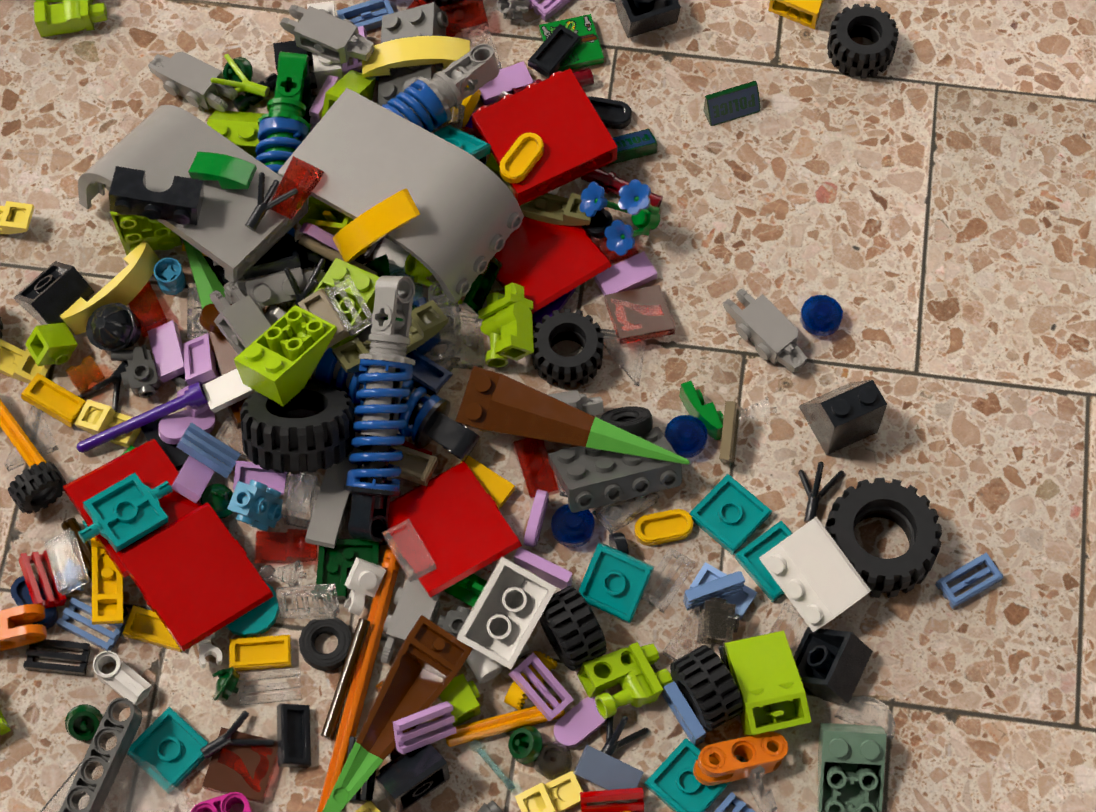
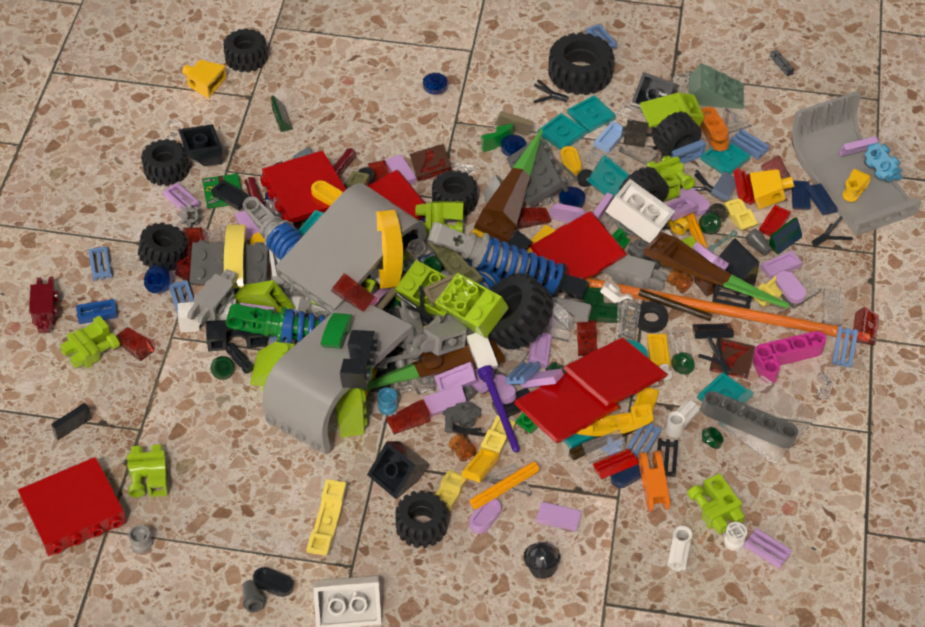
camera: 90 degrees left, 15 degrees down
(37, 487) = (551, 464): black tyre -> none
(51, 344) = (440, 463): lime brick -> none
(113, 327) = (431, 425): black piece -> none
(120, 289) = (383, 414): light yellow slope -> none
(125, 512) = (576, 402): teal plate -> none
(191, 80) = (227, 391): light grey hinge -> none
(245, 85) = (237, 357): lime plant -> none
(259, 508) = (565, 340): dark azure brick -> none
(263, 202) = (364, 308): black plant -> none
(290, 574) = (607, 332): clear piece -> none
(340, 288) = (441, 267): clear tile -> none
(409, 550) = (596, 264): clear tile -> none
(631, 419) = (502, 161): black tyre -> none
(633, 201) = (358, 164): blue plant -> none
(717, 588) = (615, 133): medium blue tile -> none
(767, 330) = (444, 106): light grey hinge -> none
(815, 574) = (607, 85): white slope -> none
(845, 414) = (503, 71): black slope -> none

